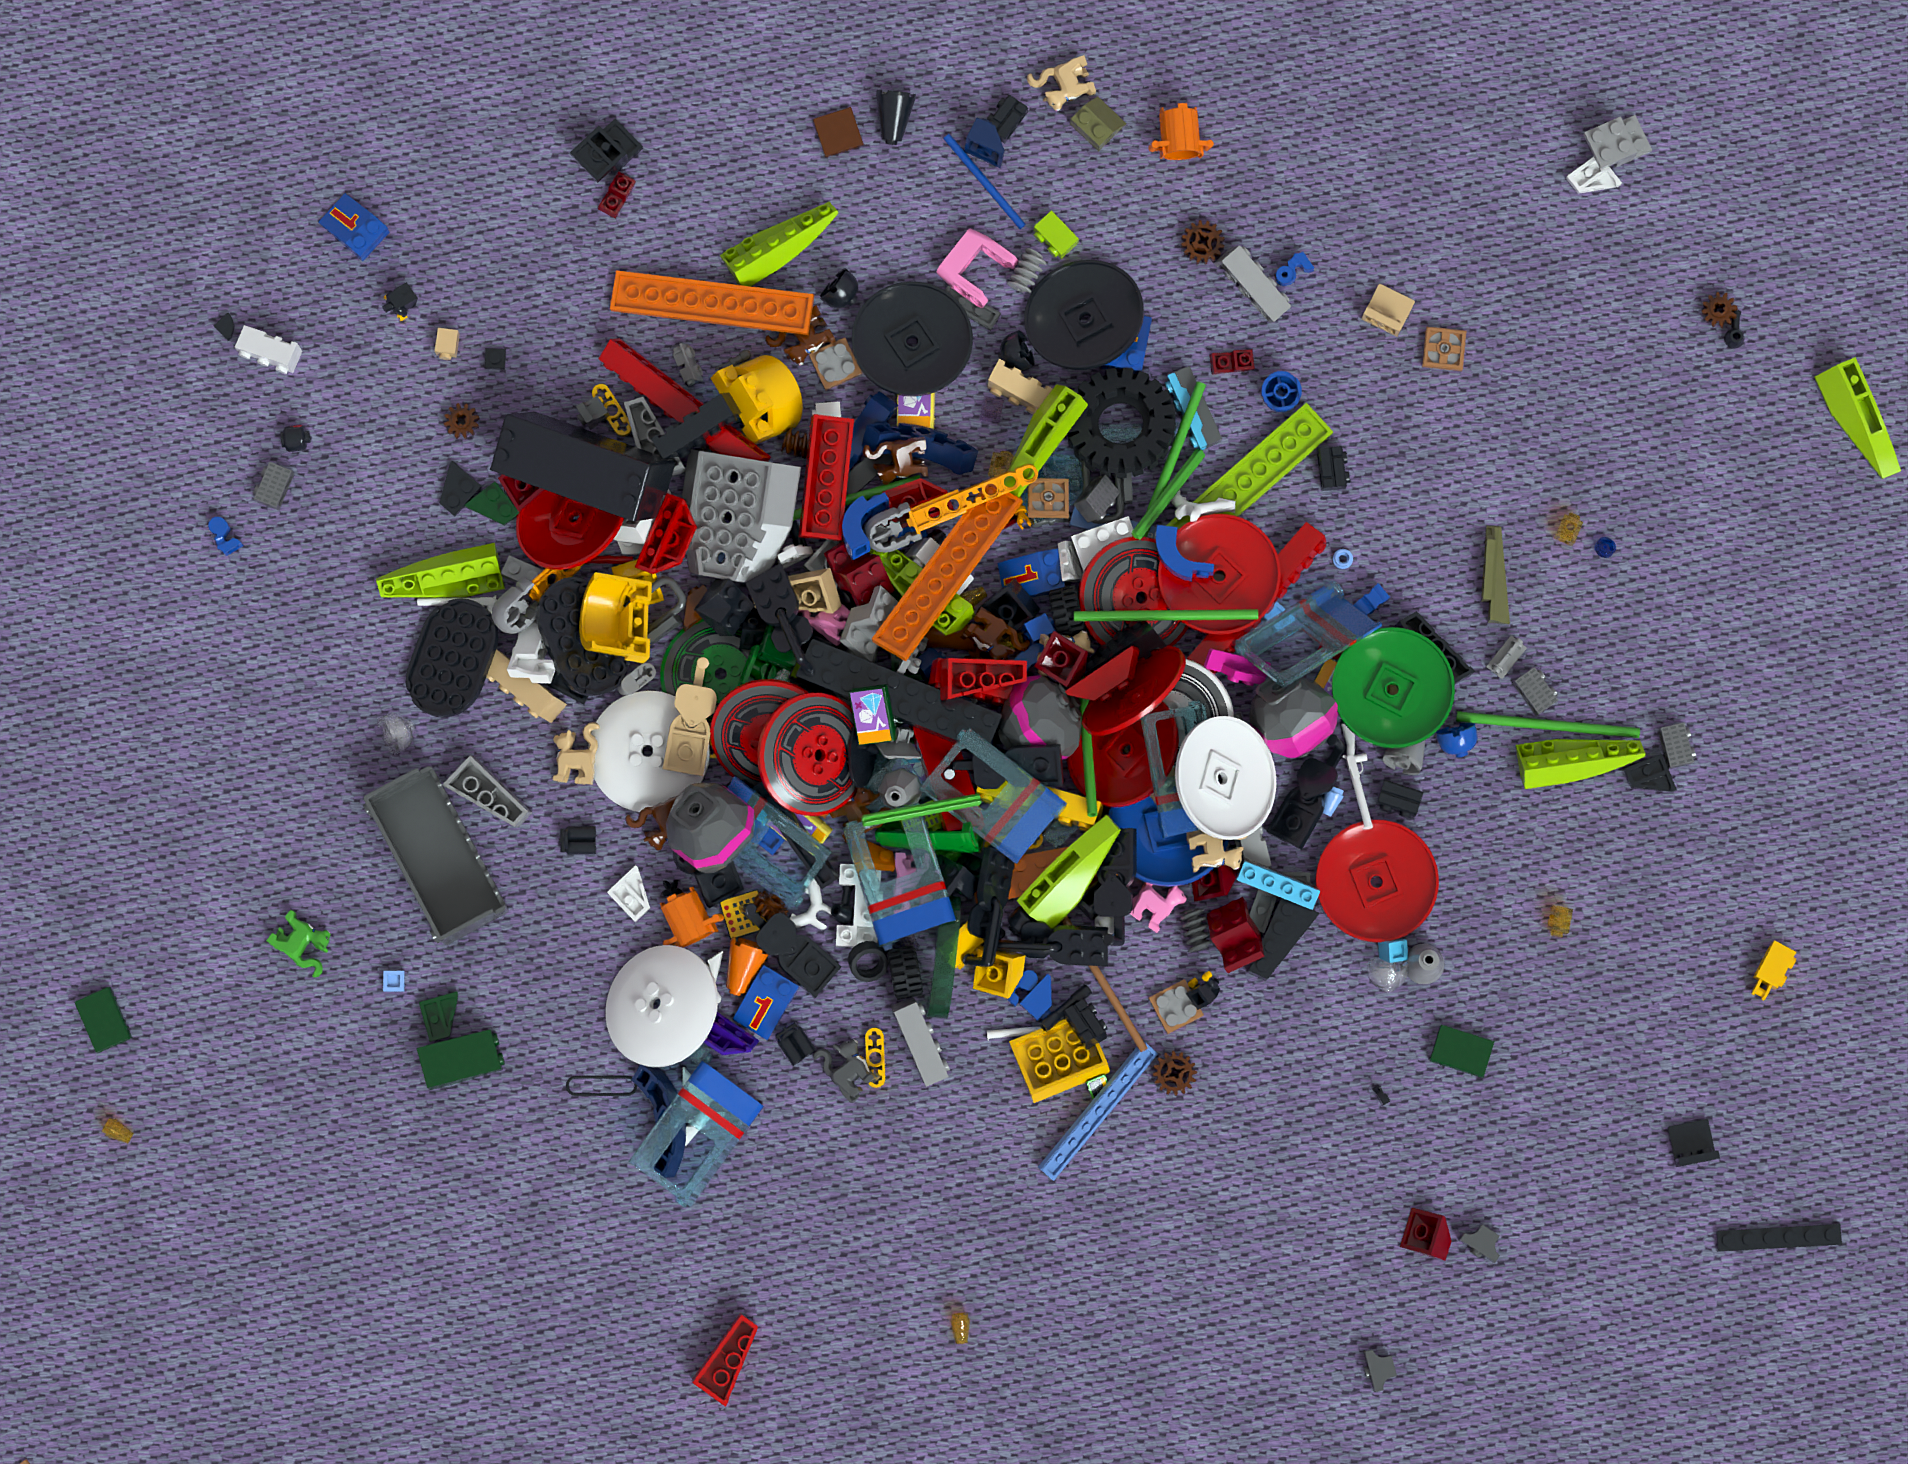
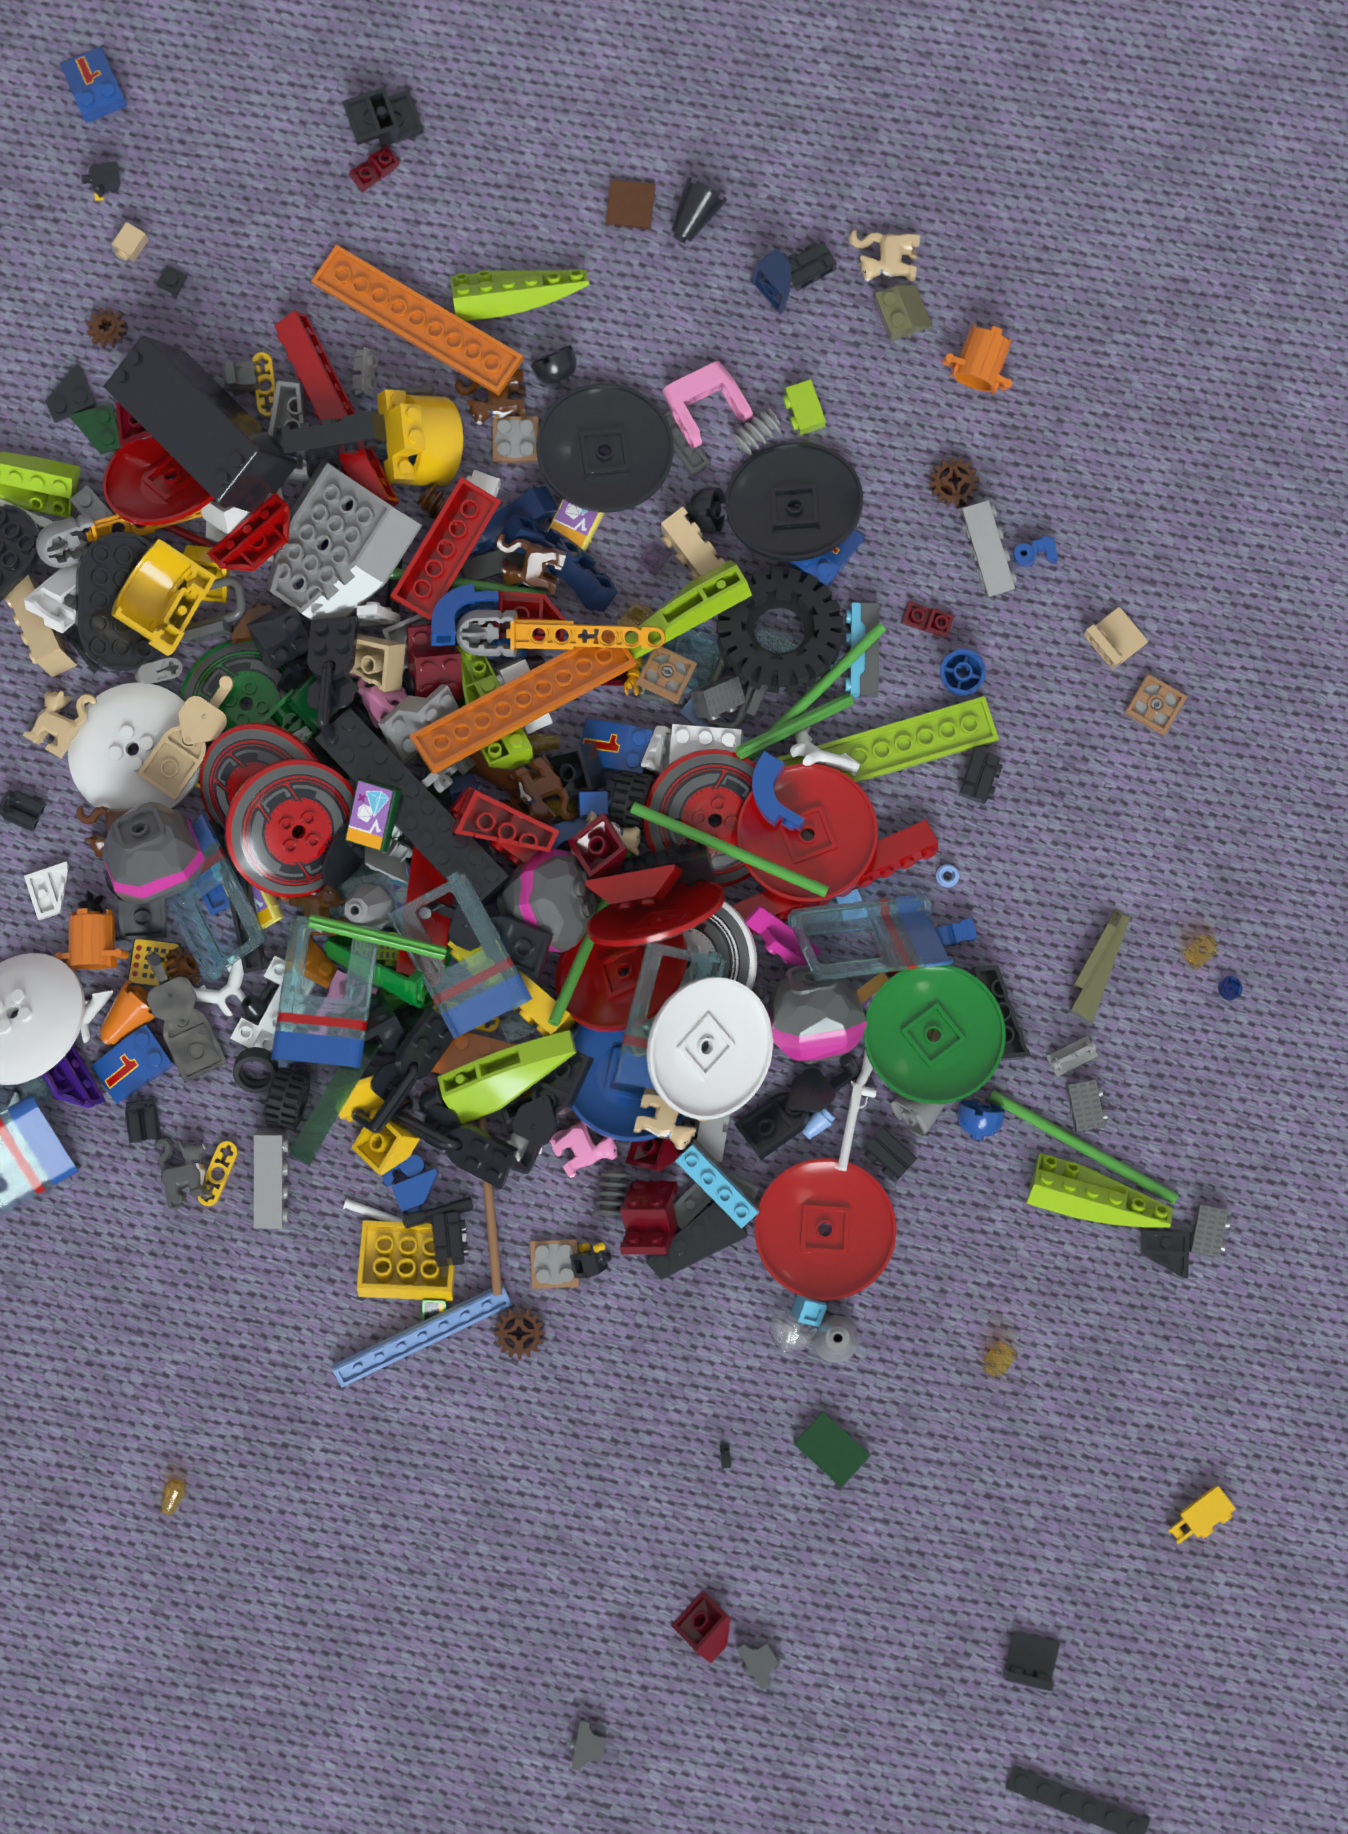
camera: 30 degrees right, 0 degrees up
(984, 181) = (757, 320): blue piece -> none

